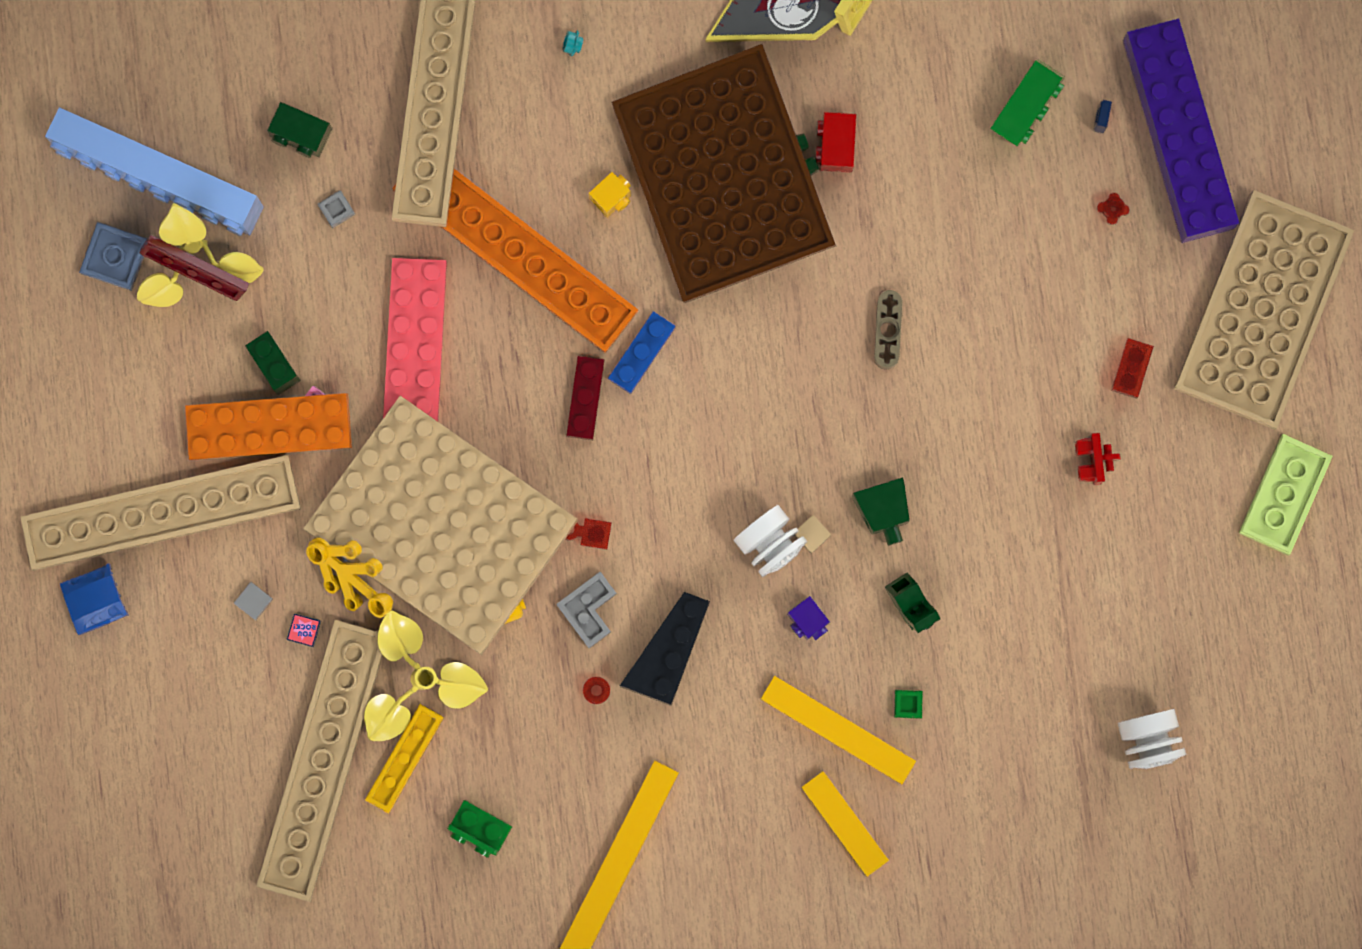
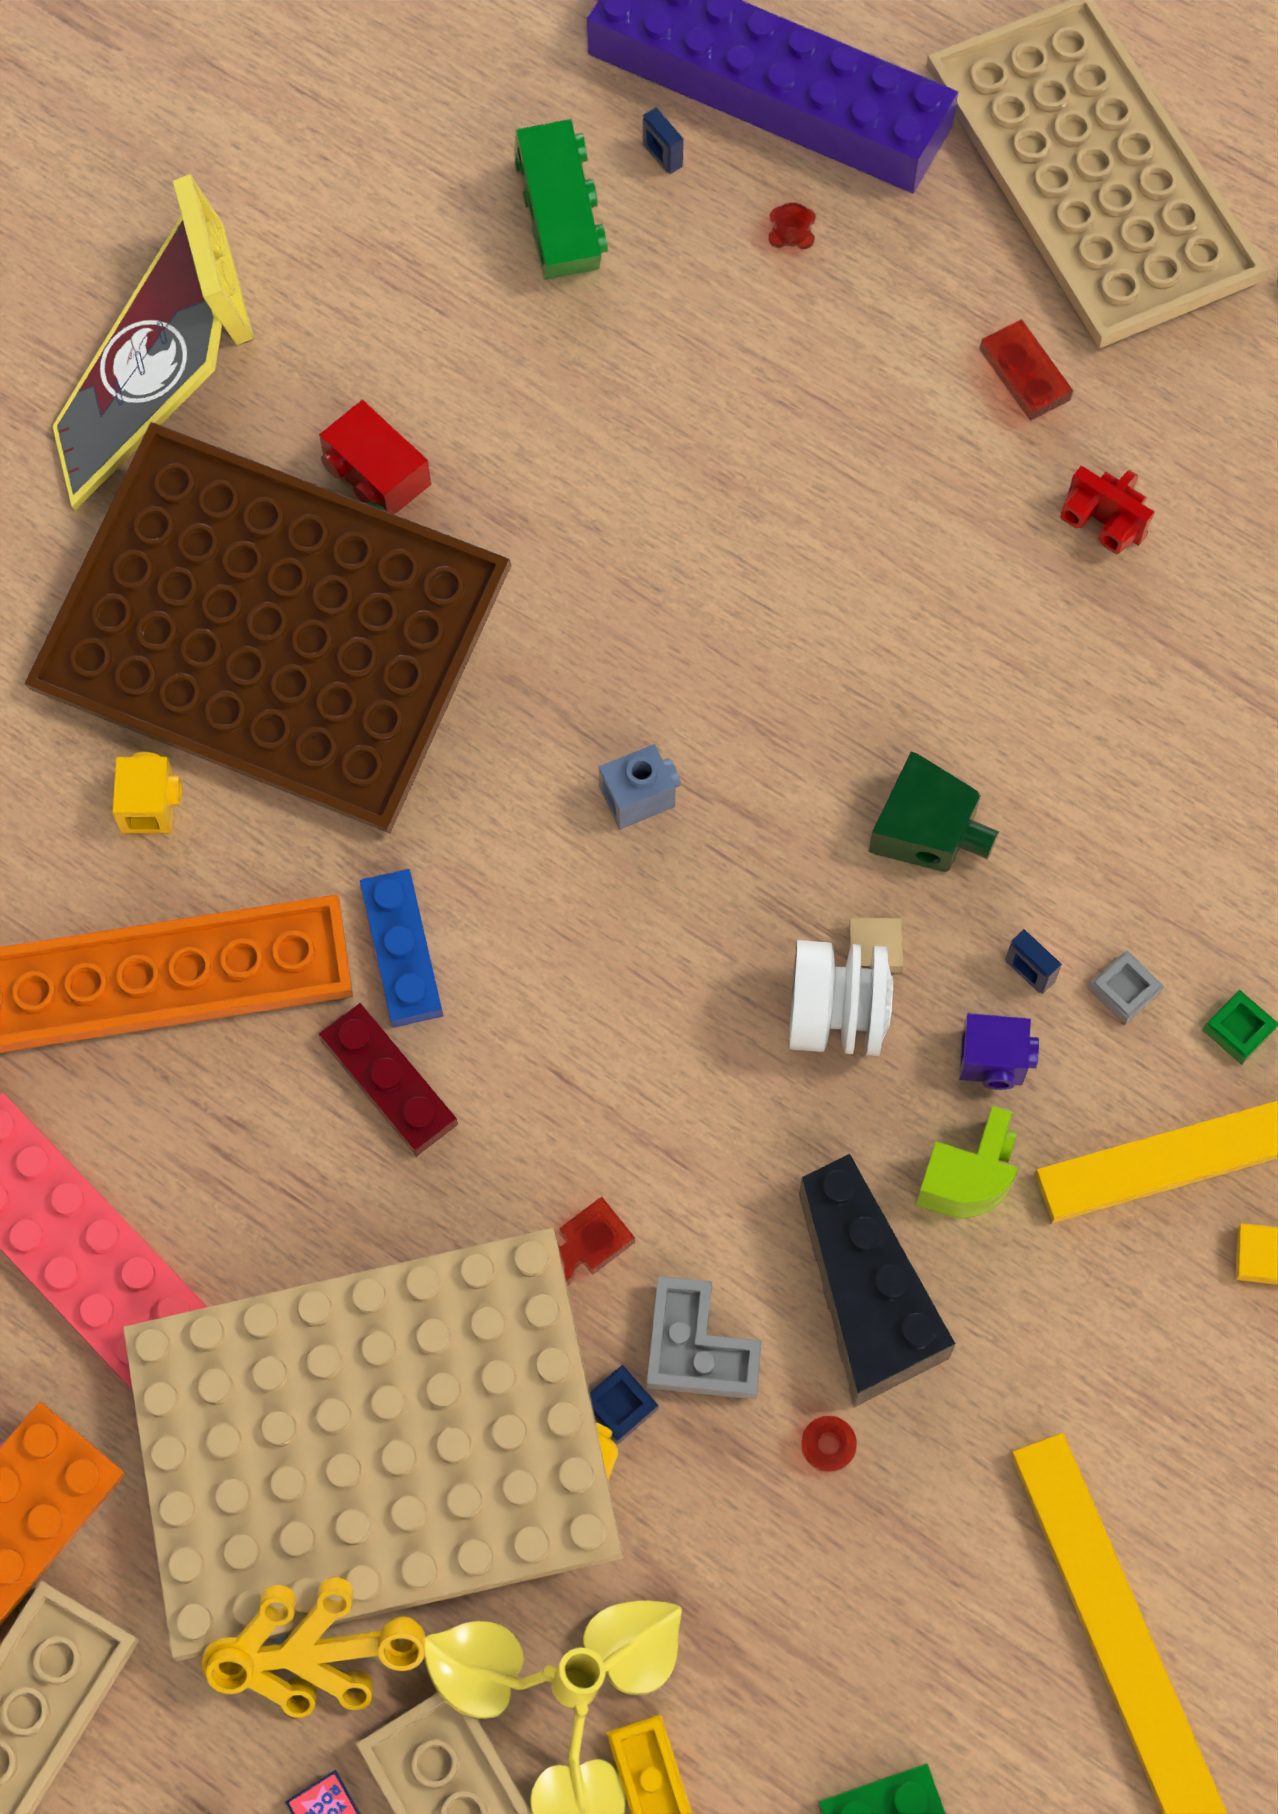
camera: 45 degrees left, 15 degrees down
(541, 600) = (621, 1404): none -> dark blue tile
(745, 656) = (967, 1182): none -> lime brick
(792, 382) = (638, 786): none -> sand blue brick
(858, 605) = (1033, 962): none -> dark blue tile
(884, 646) = (1126, 987): none -> light grey tile
(896, 310) = (680, 591): dark tan beam -> none
(912, 603) = (1100, 896): dark green brick -> none

